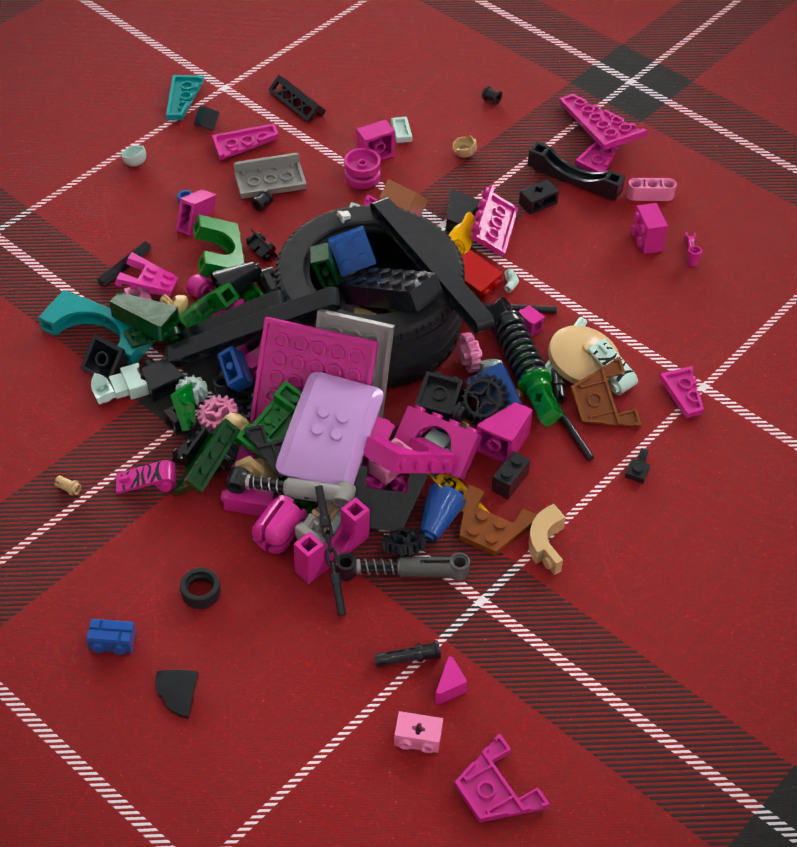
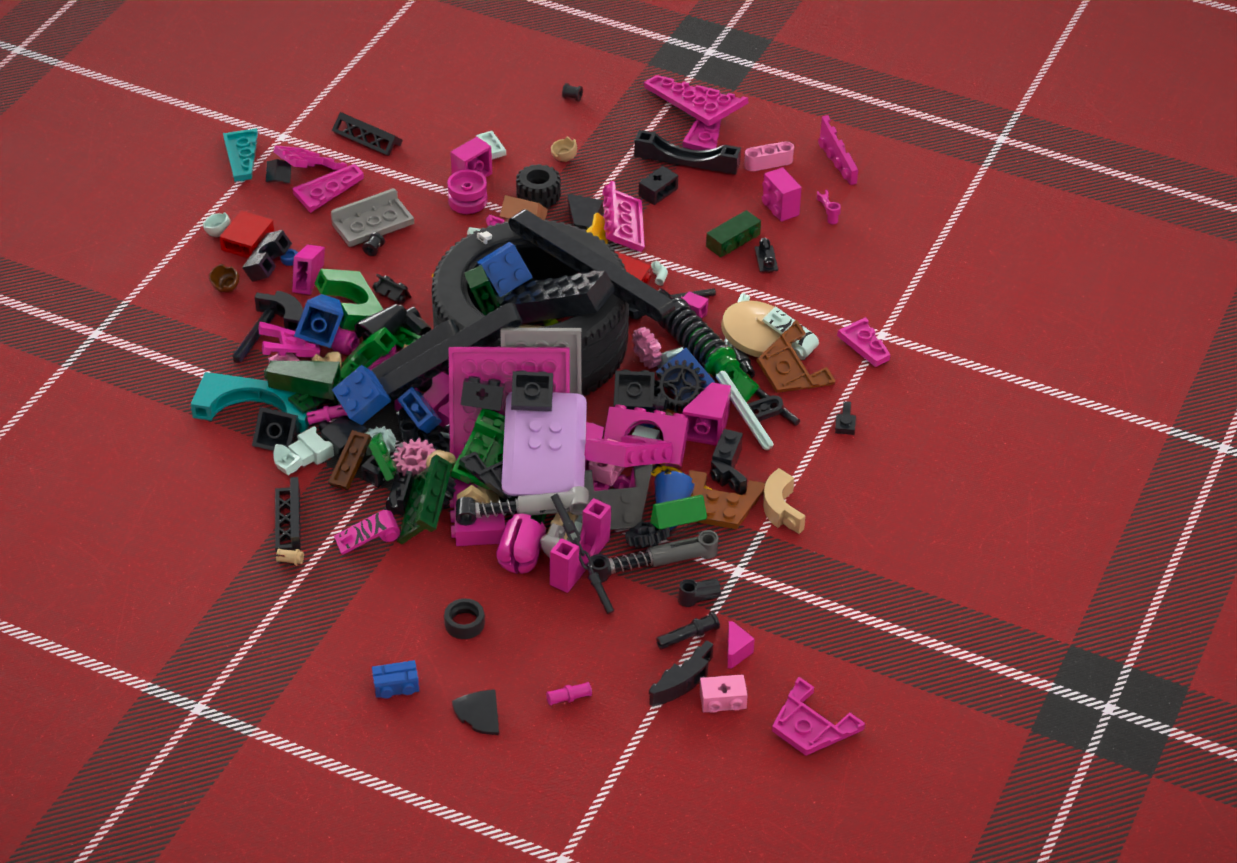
camera: 15 degrees left, 5 degrees down
(86, 448) = (292, 518): none -> black fence
(118, 205) = (224, 278): none -> reddish brown hair
(153, 353) = (326, 413): none -> dark pink pin
(155, 198) = (260, 262): none -> black arch
(156, 170) = (245, 233): none -> red brick
(156, 403) = (350, 460): none -> reddish brown plate
(161, 241) = (282, 305): none -> black arch
(177, 262) = (320, 320): none -> blue slope
(184, 343) = (361, 395): none -> blue brick
(223, 106) = (301, 158): none -> dark pink wing
(269, 692) = (569, 693): none -> dark pink pin
(277, 370) = (472, 397): none -> black brick
(330, 377) = (532, 391): none -> black plate
(380, 707) = (682, 679): none -> black slope
(428, 176) = (539, 185): none -> black tyre
(432, 614) = (693, 591): none -> black piece
(439, 528) = (678, 512): none -> green slope
(503, 499) = (728, 475): none -> black slope
(542, 437) = (746, 412): none -> light aqua axle
(562, 437) = (765, 405): none -> black plate
(592, 257) = (733, 233): none -> dark green brick
(616, 285) = (766, 256): none -> black hinge
(715, 196) = (836, 151): none -> dark pink wing

